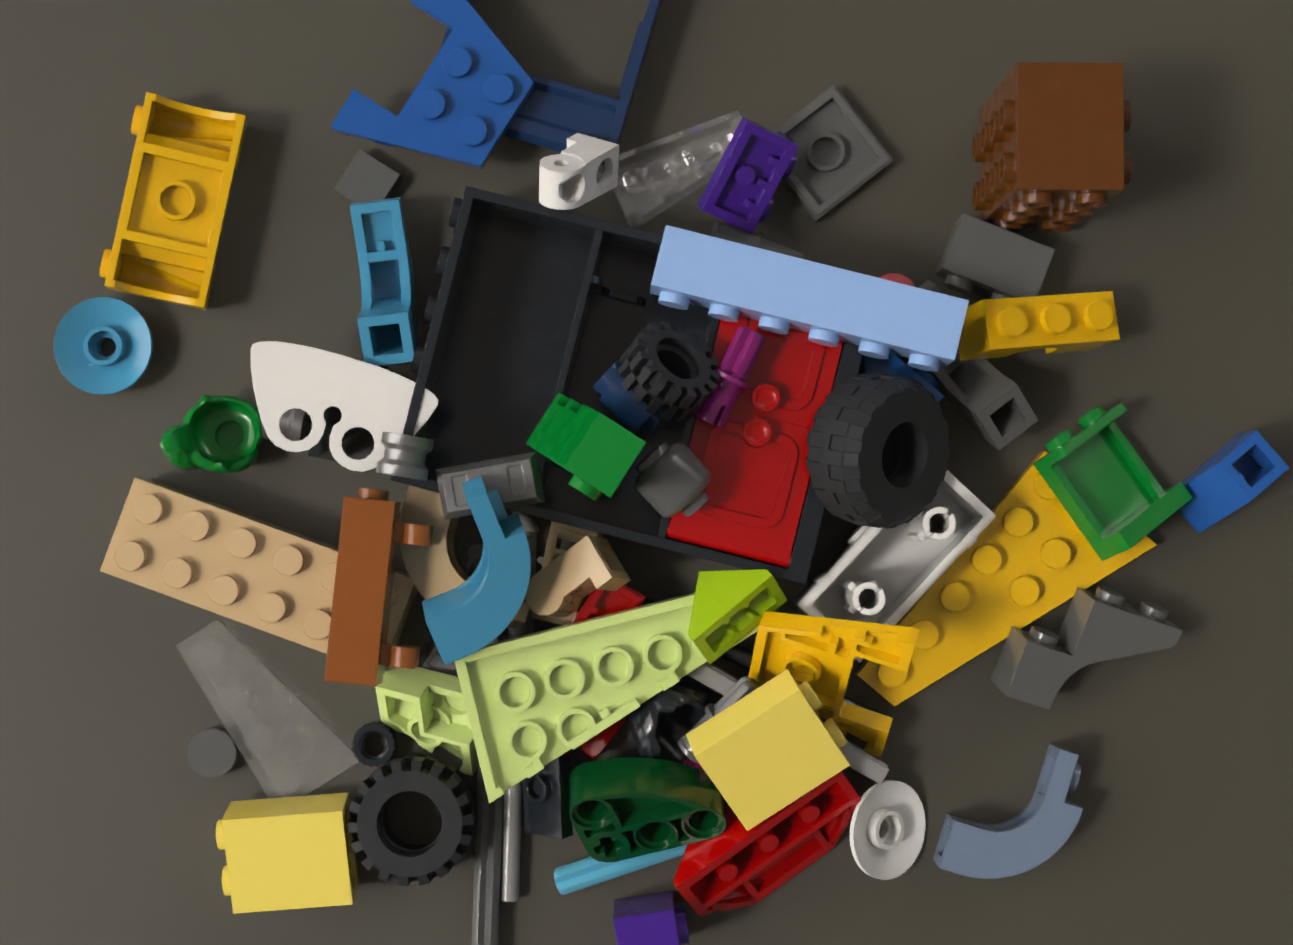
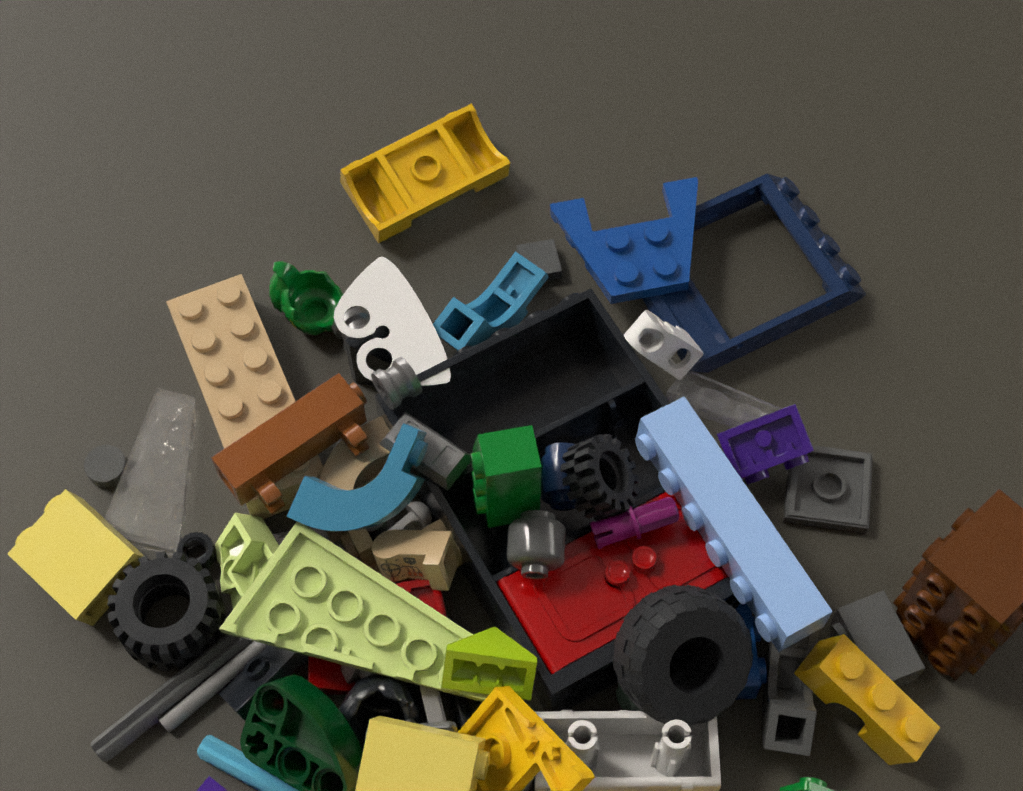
camera: 50 degrees right, 25 degrees down
(80, 342) = (301, 194): dark azure dish -> none

